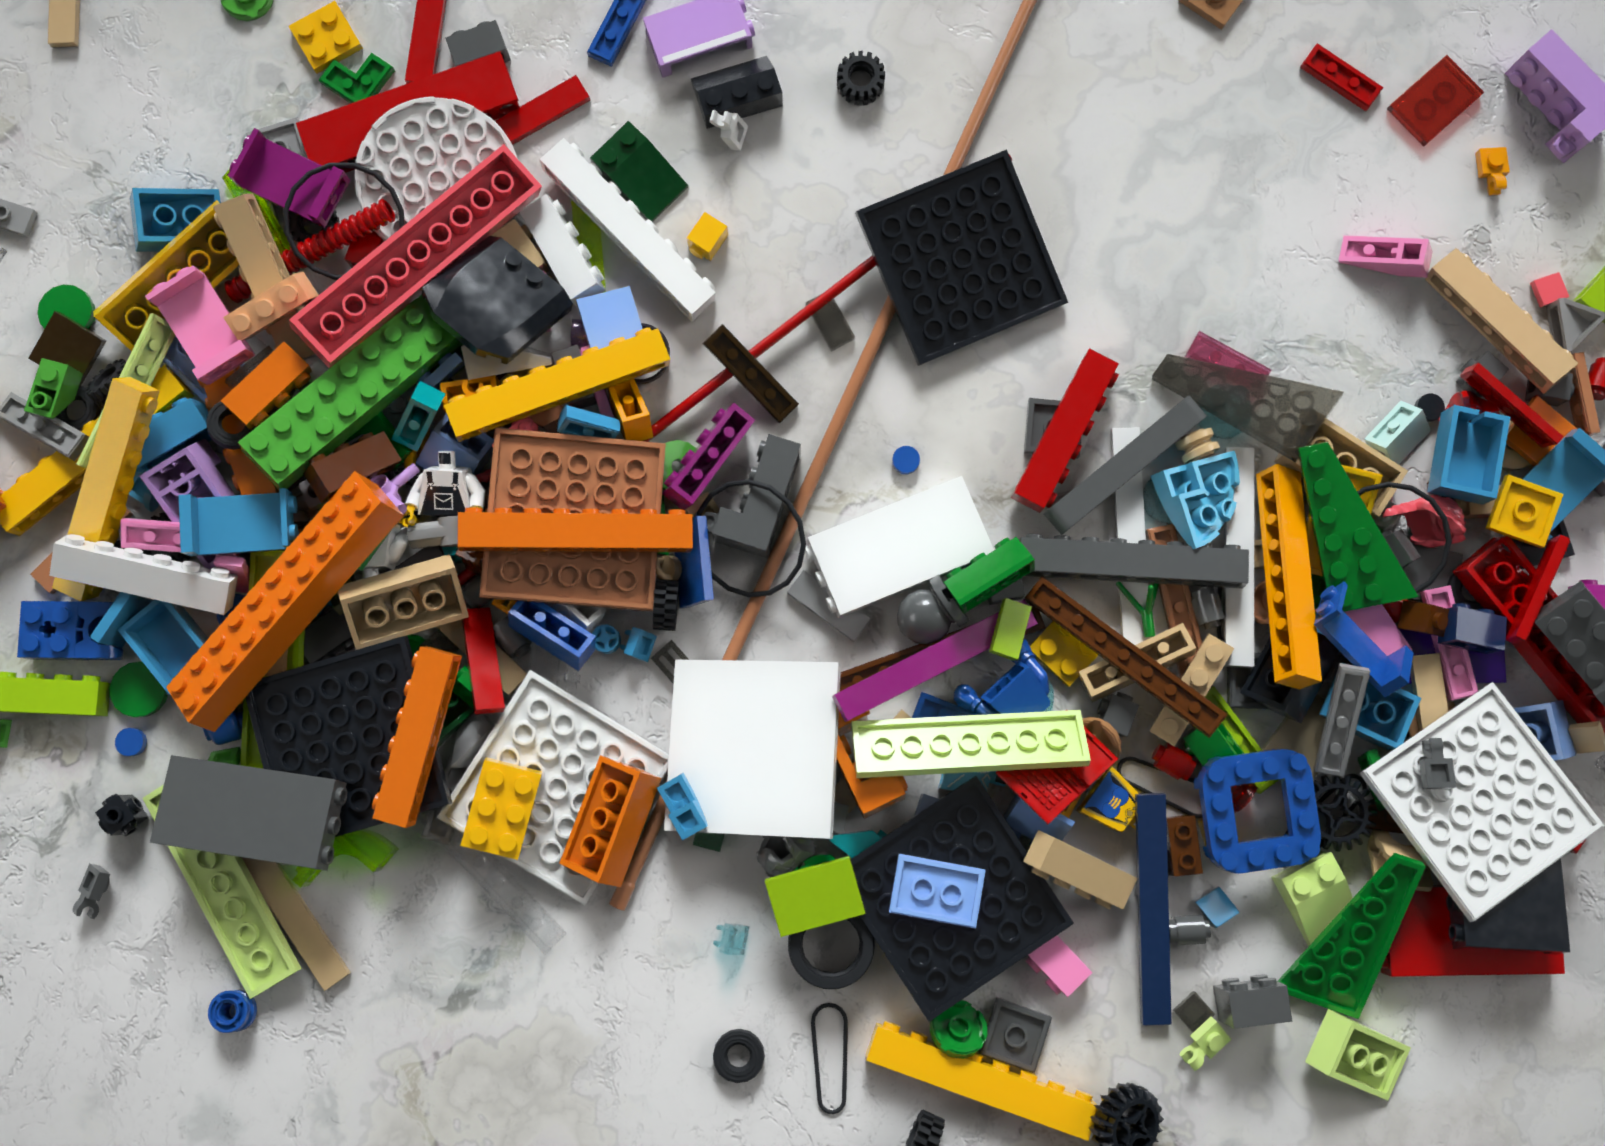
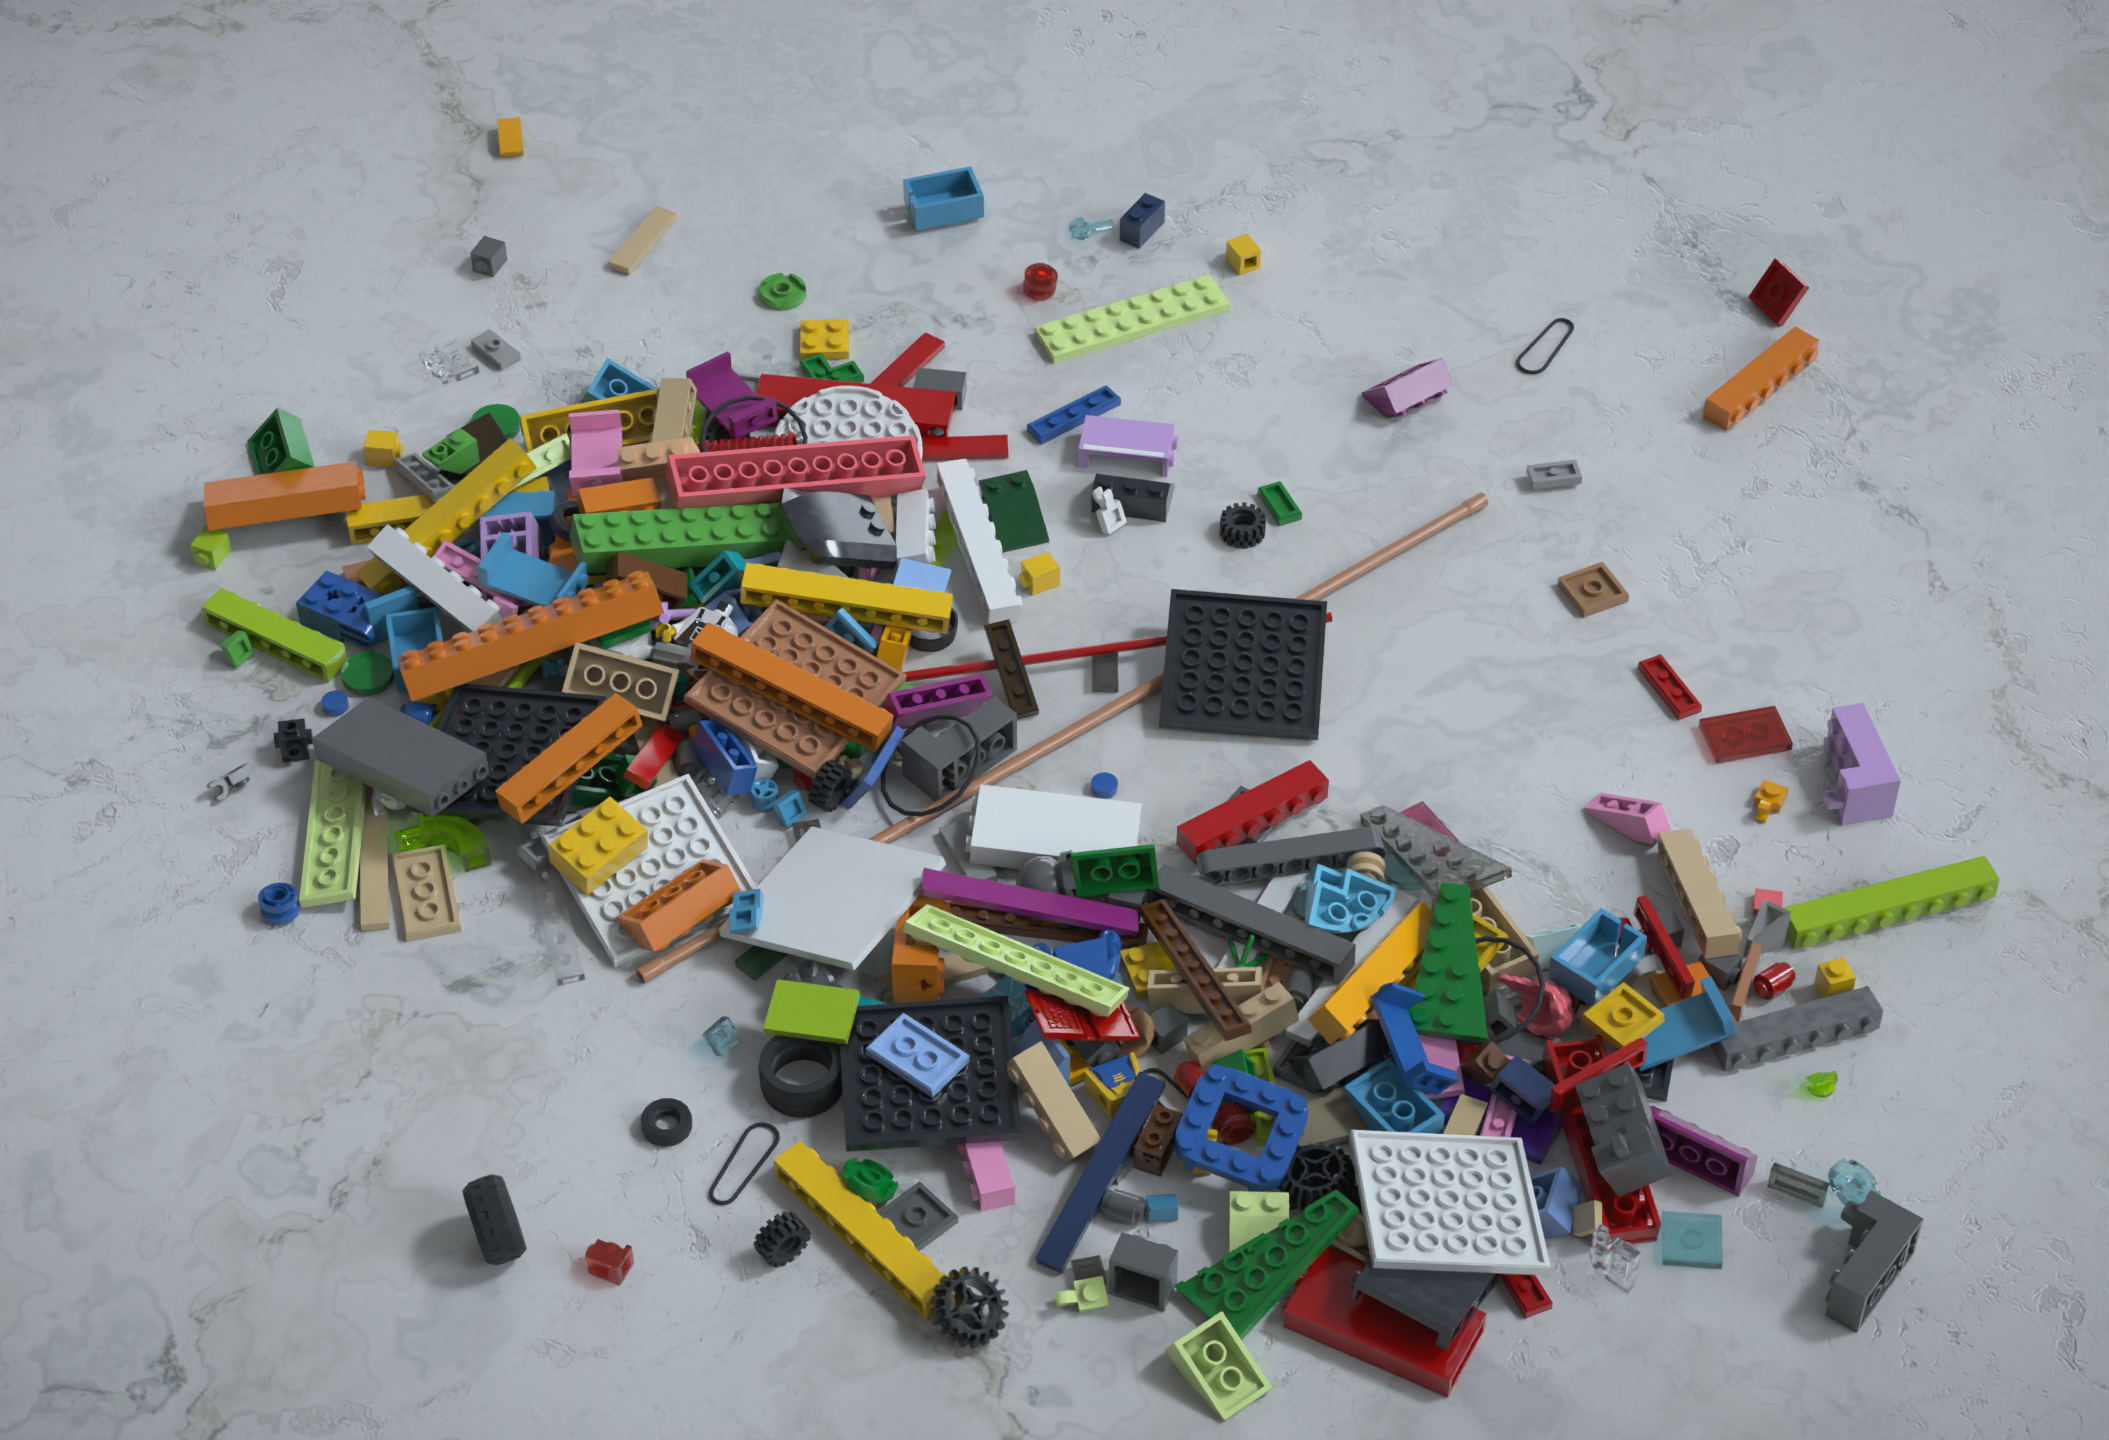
camera: 30 degrees right, 35 degrees down
(360, 917) = (426, 893): none -> tan tile
(877, 30) = (1279, 503): none -> green tile
(1010, 629) = (1109, 916): lime tile -> none
(1341, 719) = (1357, 1092): light grey tile -> none
(1436, 770) = (1416, 1150): dark grey plate -> none

